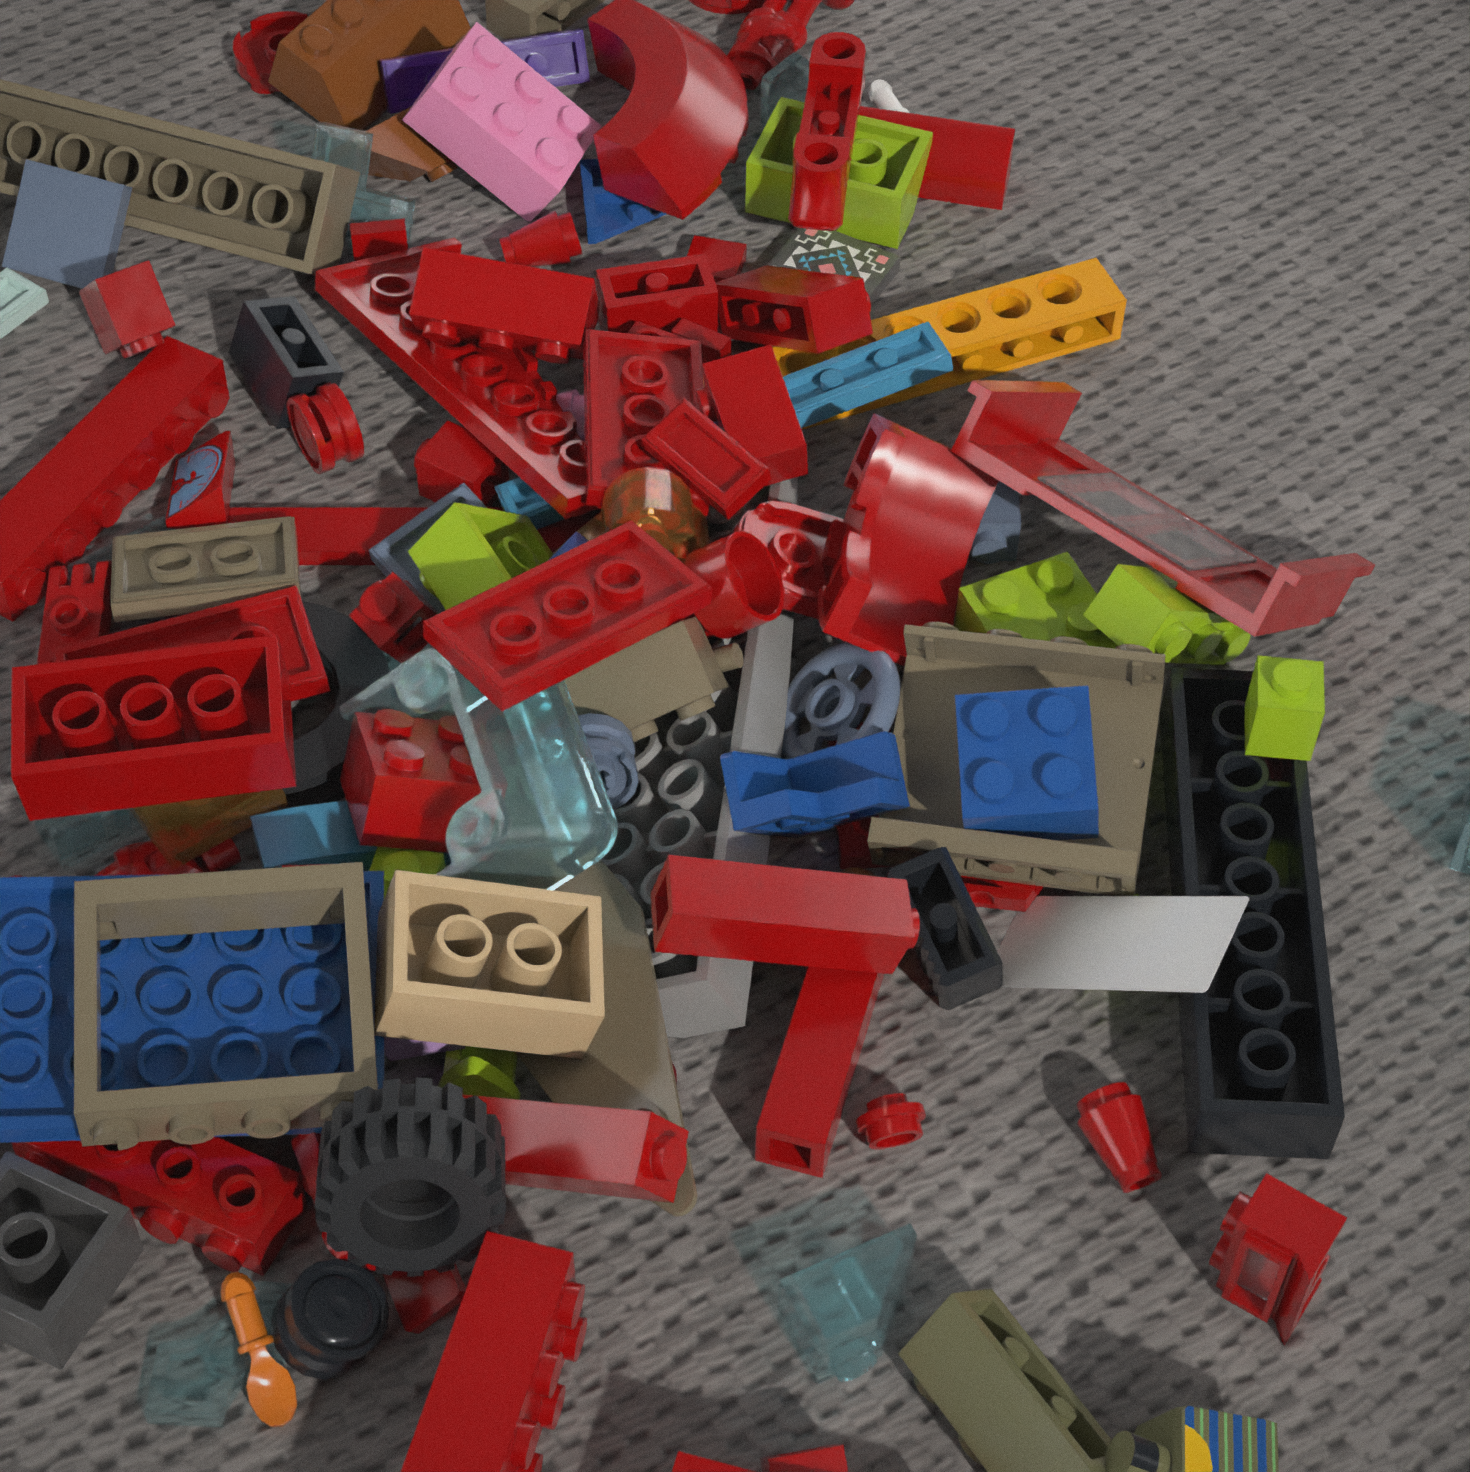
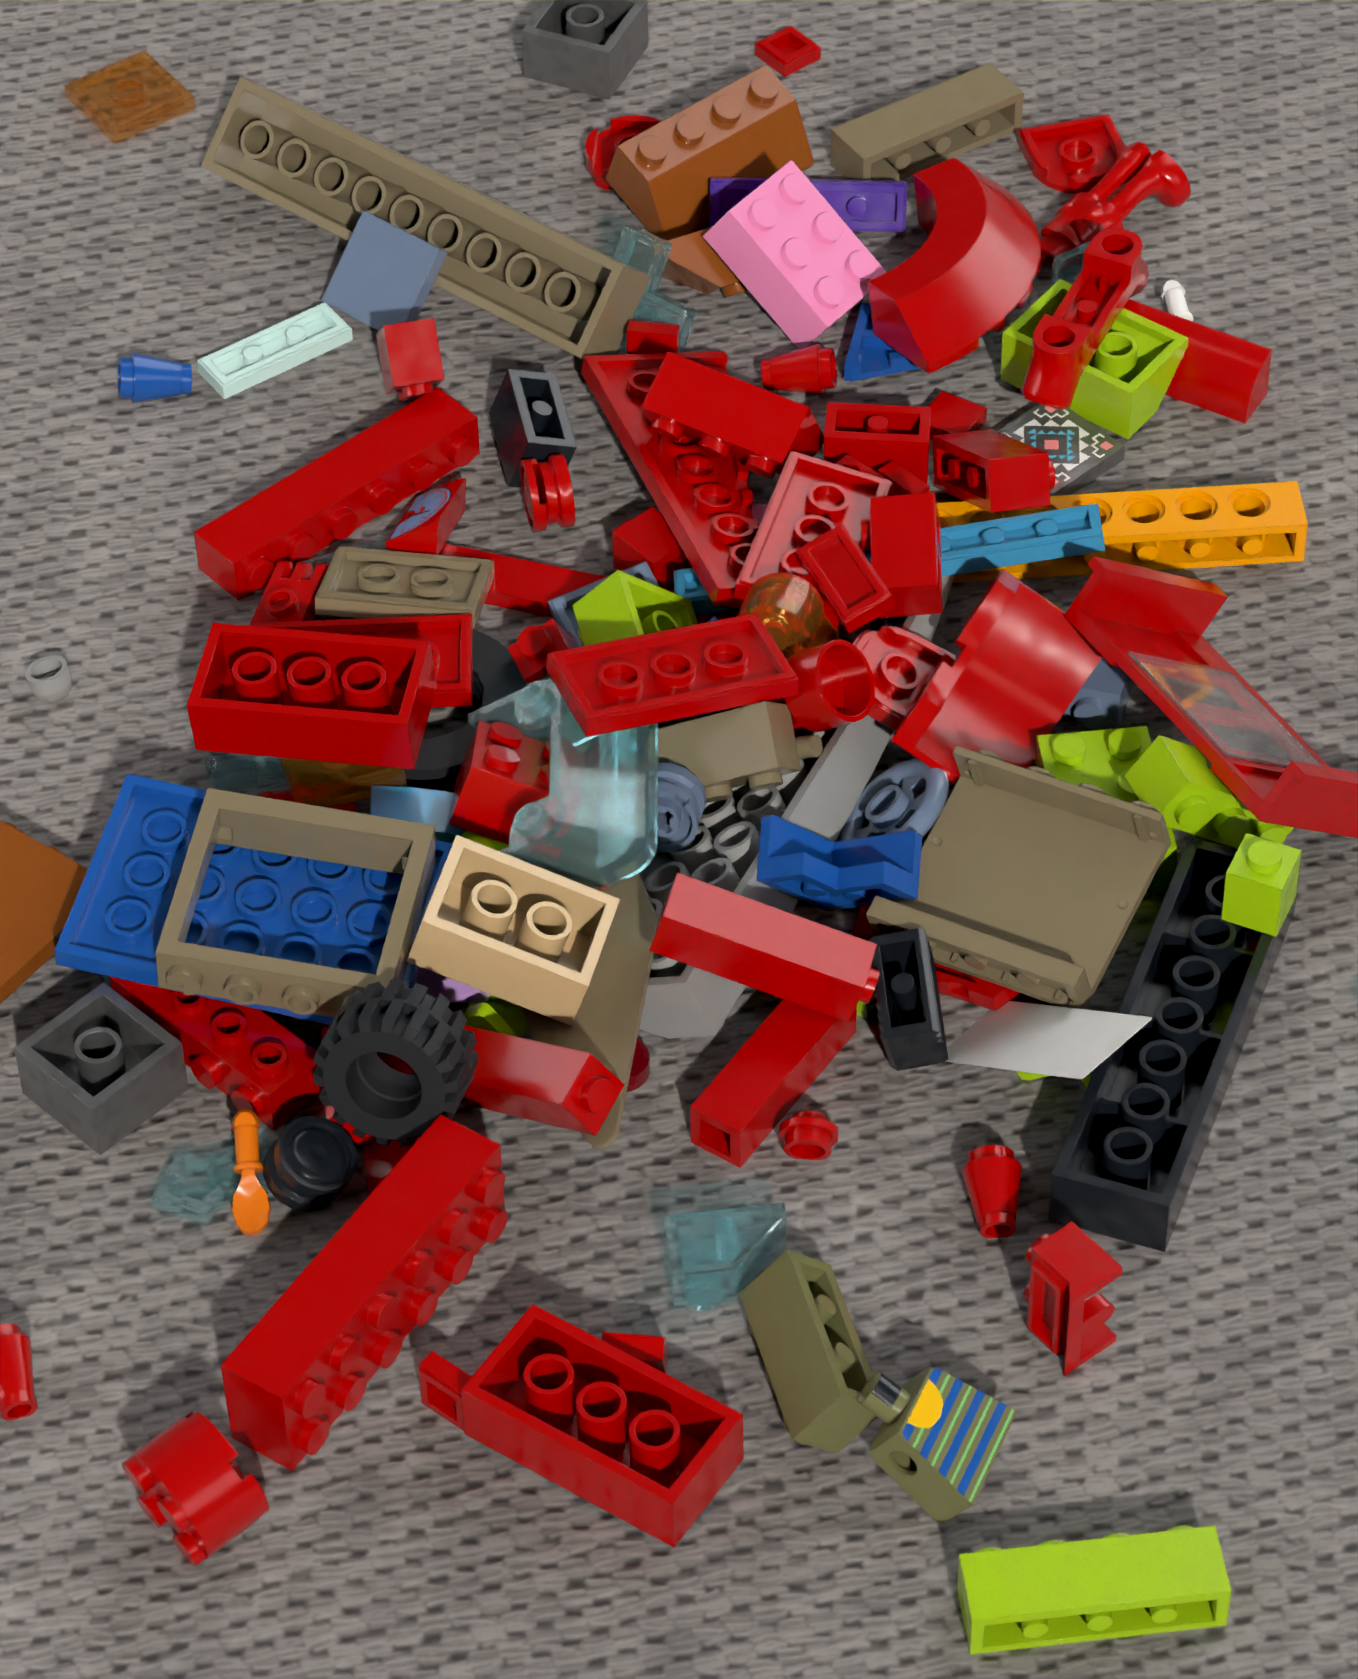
camera: 20 degrees right, 5 degrees down
(1028, 763) = (1021, 879): blue brick -> none

